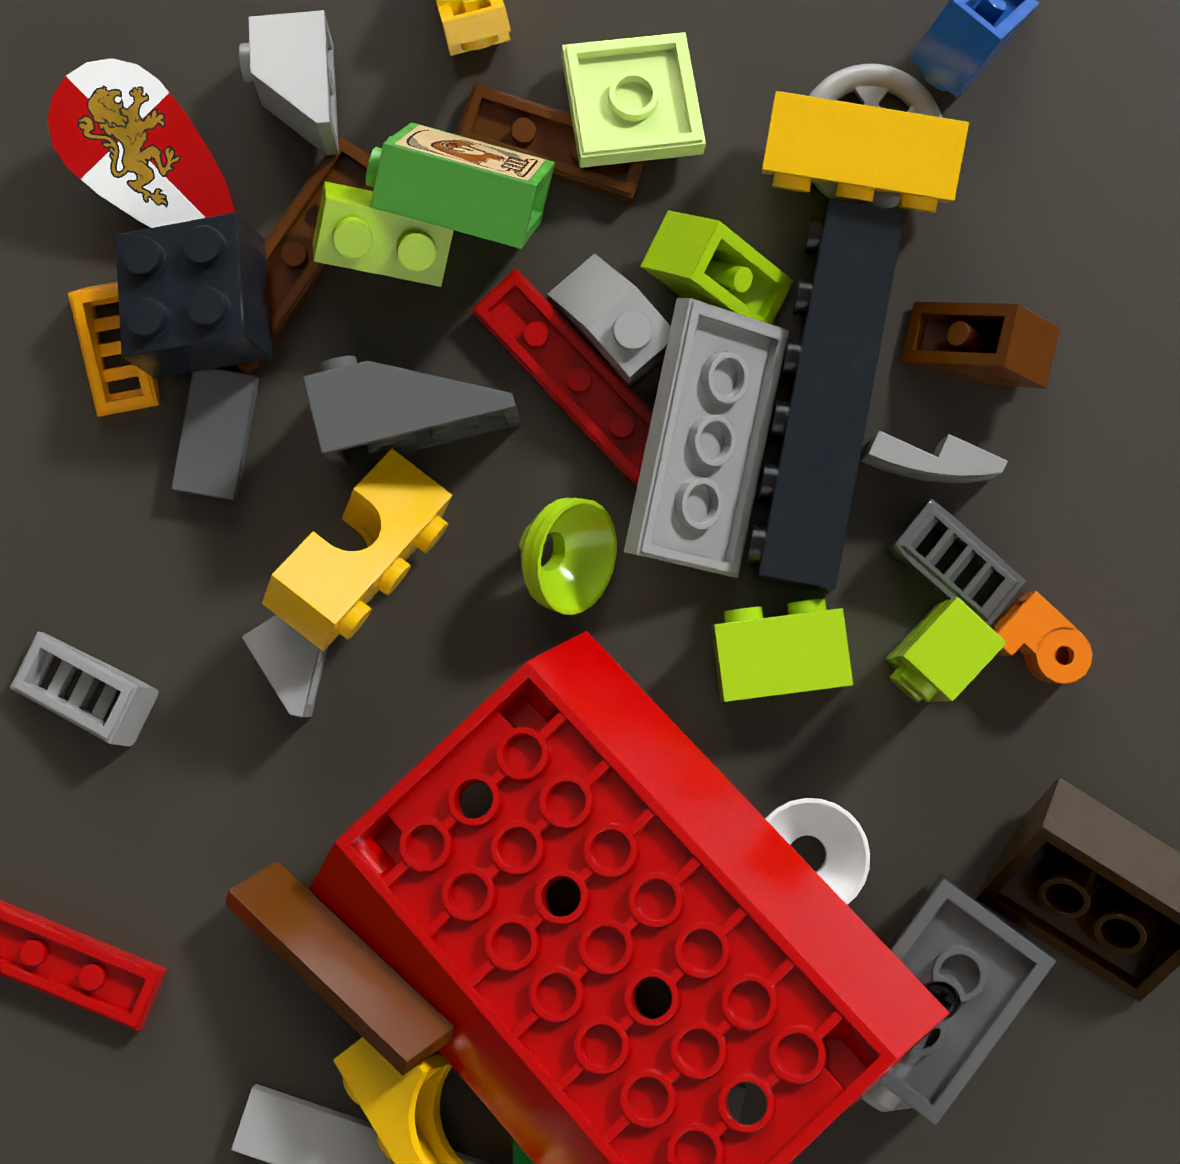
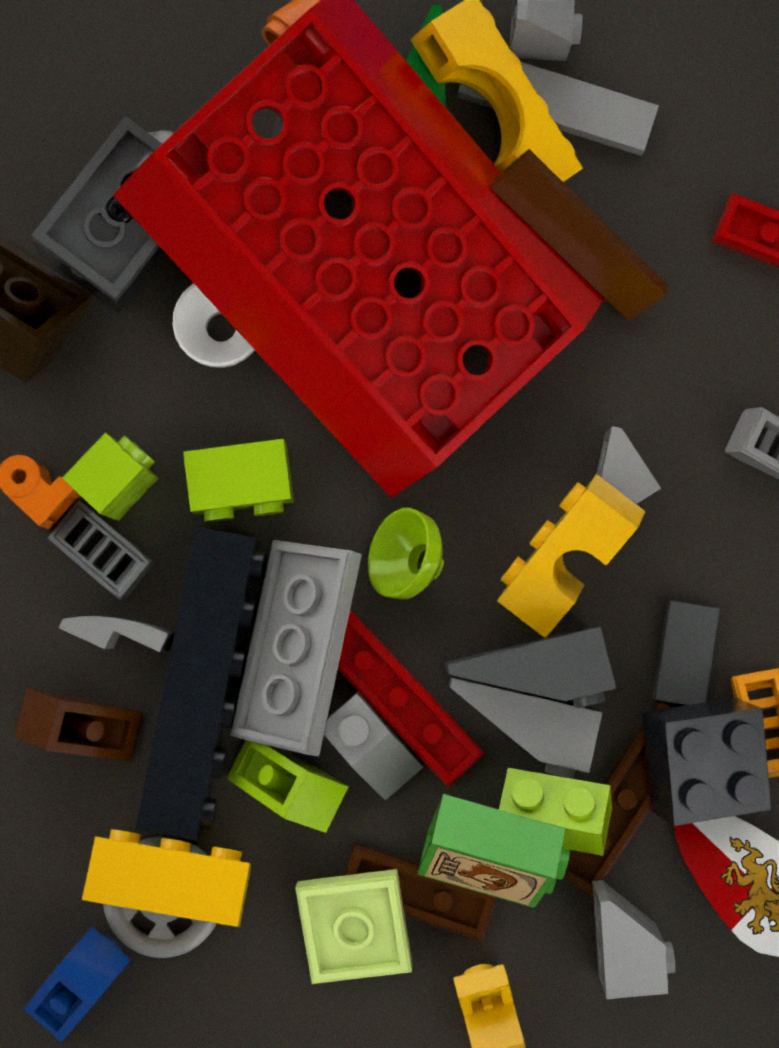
camera: 175 degrees right, 0 degrees up
(392, 331) = (544, 727): none -> light grey slope

